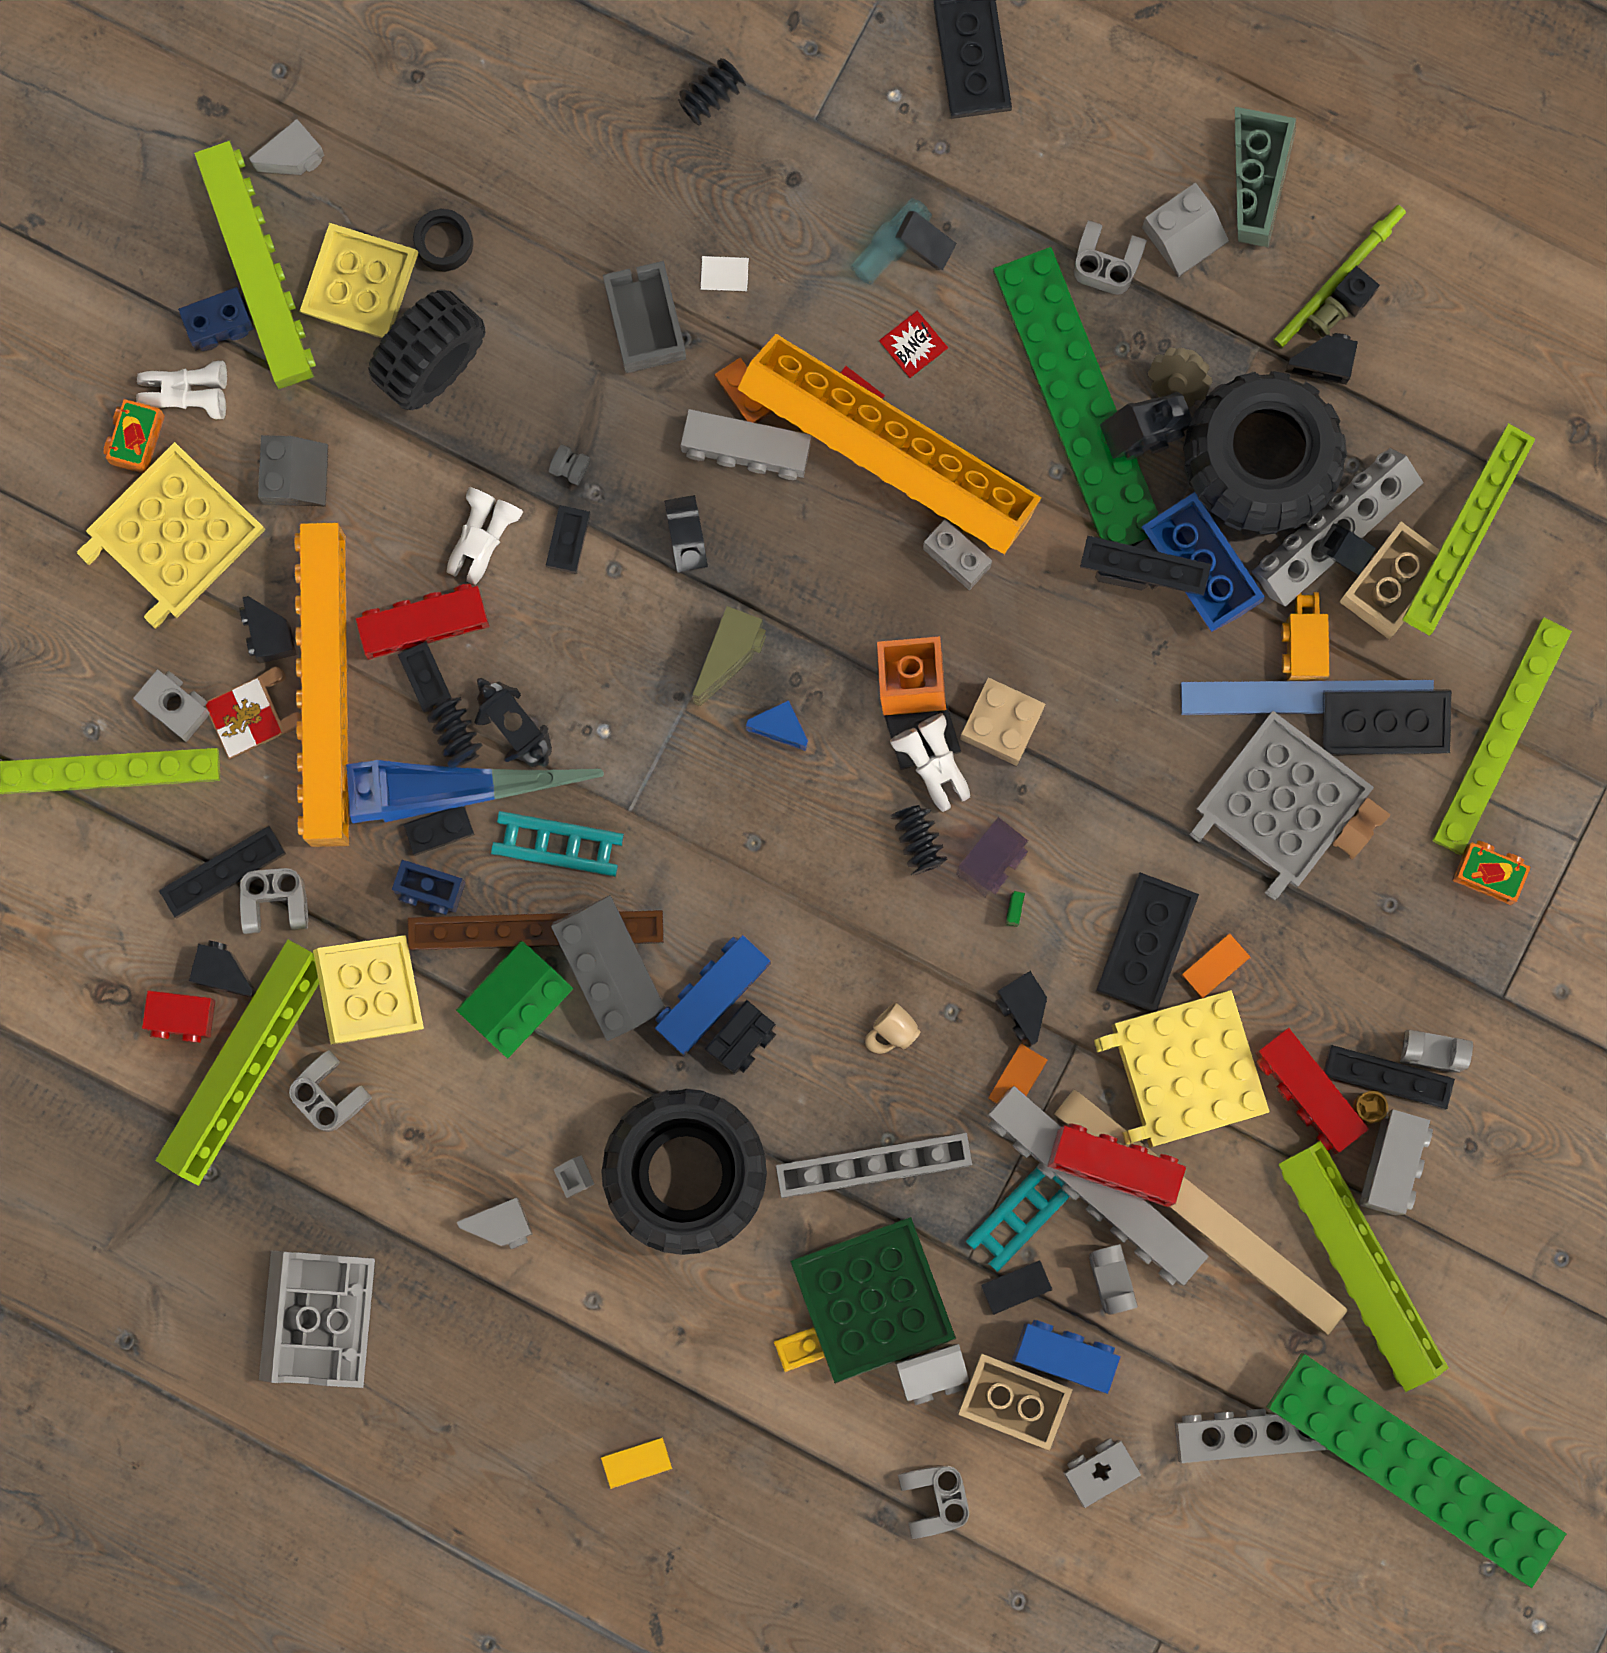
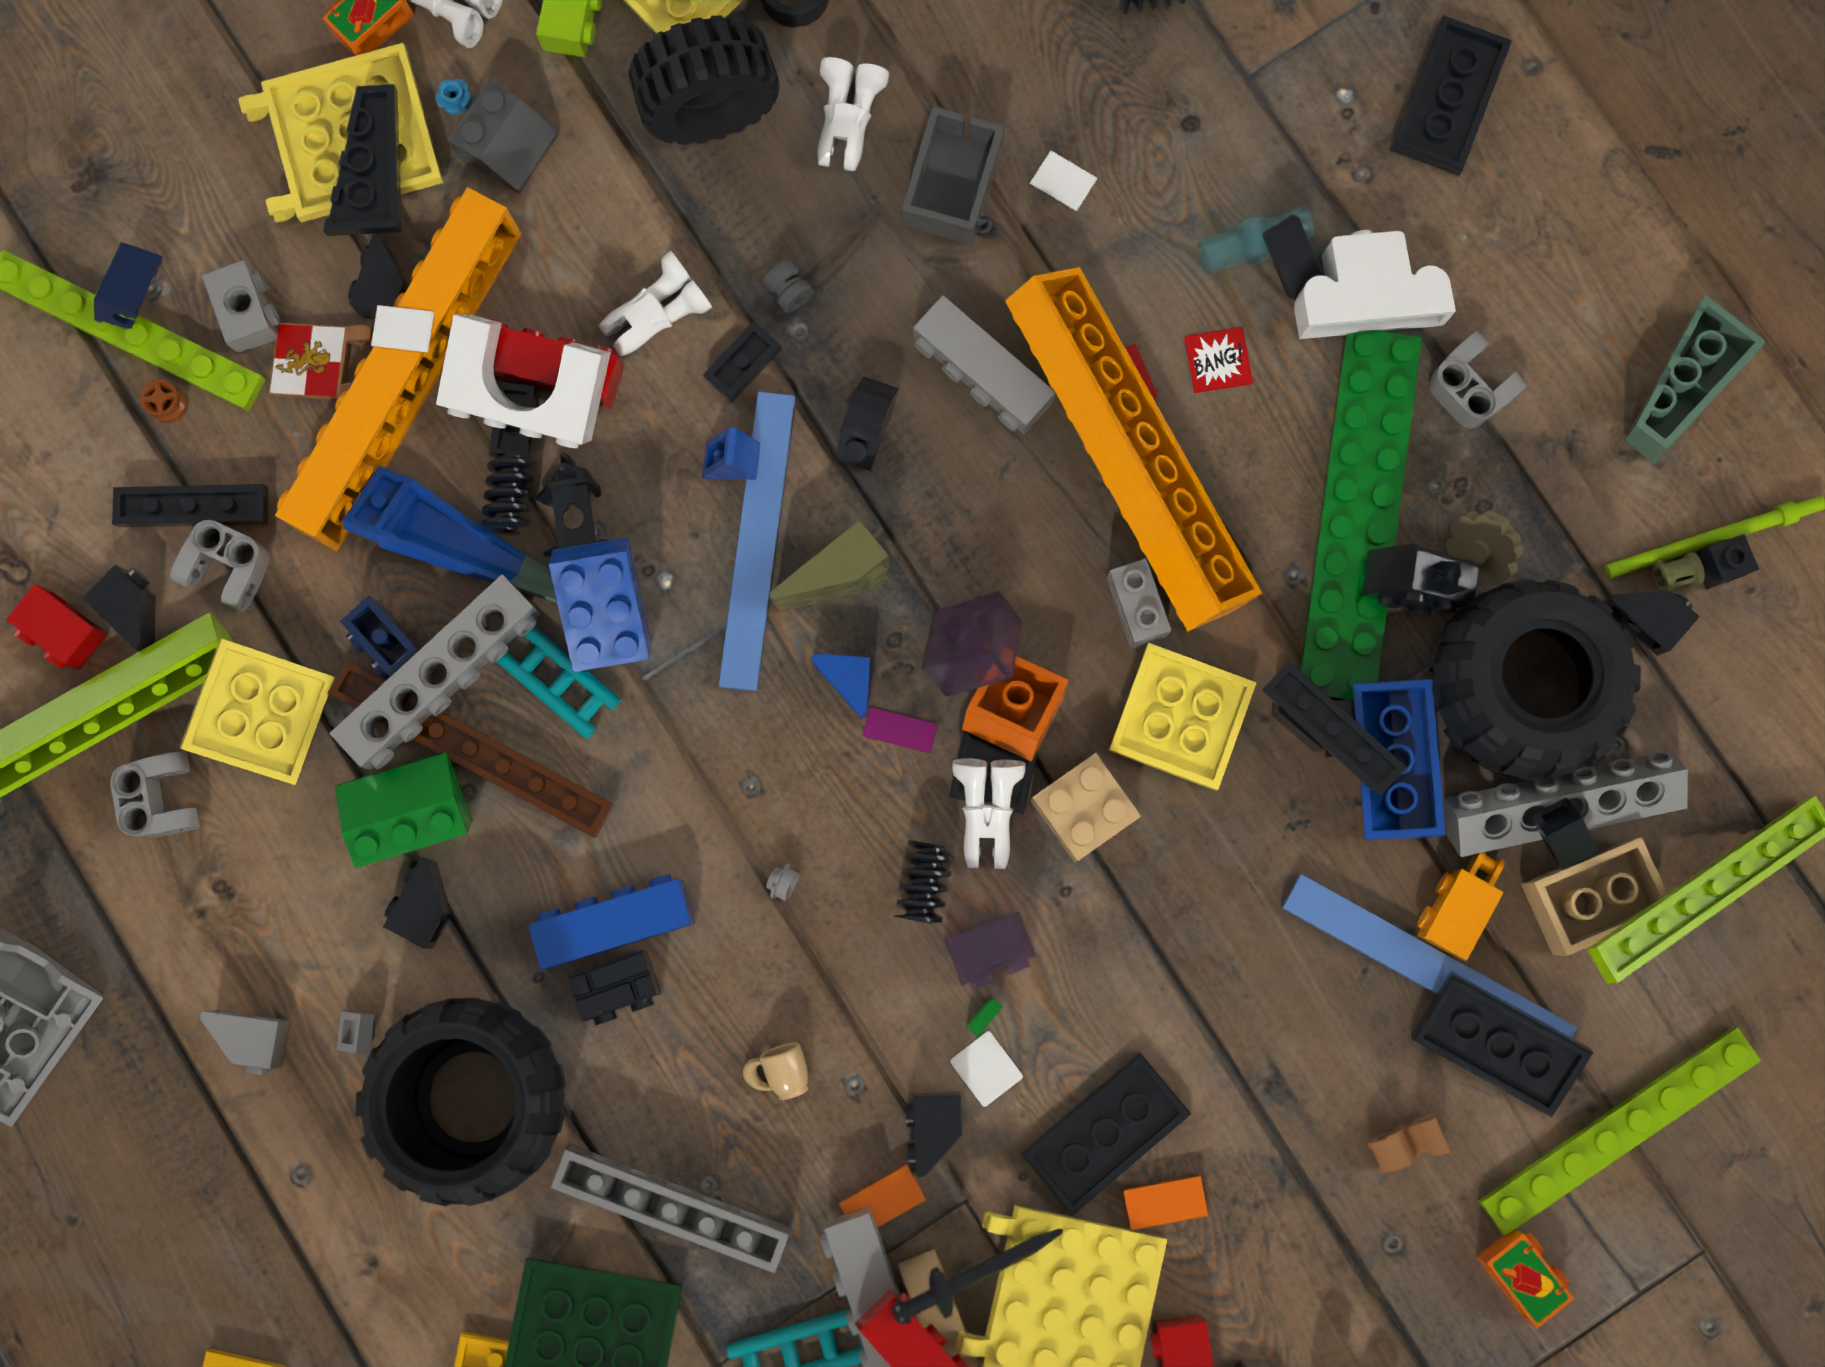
camera: 35 degrees right, 0 degrees up
(80, 737) = (125, 285): none -> dark blue hinge
(151, 802) = (156, 394): none -> dark orange wheel
(212, 554) = (369, 175): none -> black wing
(234, 468) = (460, 102): none -> dark azure plate
(315, 652) = (402, 328): none -> white sticker
(387, 670) = (471, 387): none -> white arch
(439, 830) = (434, 587): black plate -> none
(498, 808) = (357, 732): none -> light grey brick
(540, 318) = (843, 119): none -> white piece
(569, 1062) = (422, 906): none -> black slope
(573, 771) = (600, 604): none -> blue brick
(600, 613) = (731, 456): none -> blue slope
(608, 967) = (516, 832): dark grey slope -> none
(655, 664) = (757, 545): none -> medium blue tile
(730, 379) = (1008, 332): orange plate -> none
(817, 897) = (782, 882): none -> light grey plate
(837, 742) = (900, 730): none -> magenta sticker
(857, 649) = (972, 644): none -> clear purple brick
(995, 232) = (1371, 289): none -> white brick
(1034, 618) = (1182, 716): none -> light yellow plate
(1037, 946) = (986, 1068): none -> white sticker
(1095, 1102) = (942, 1290): none -> black sword
(1185, 229) = (1576, 396): light grey slope -> none
(1283, 801) = (1339, 1066): light grey plate -> none

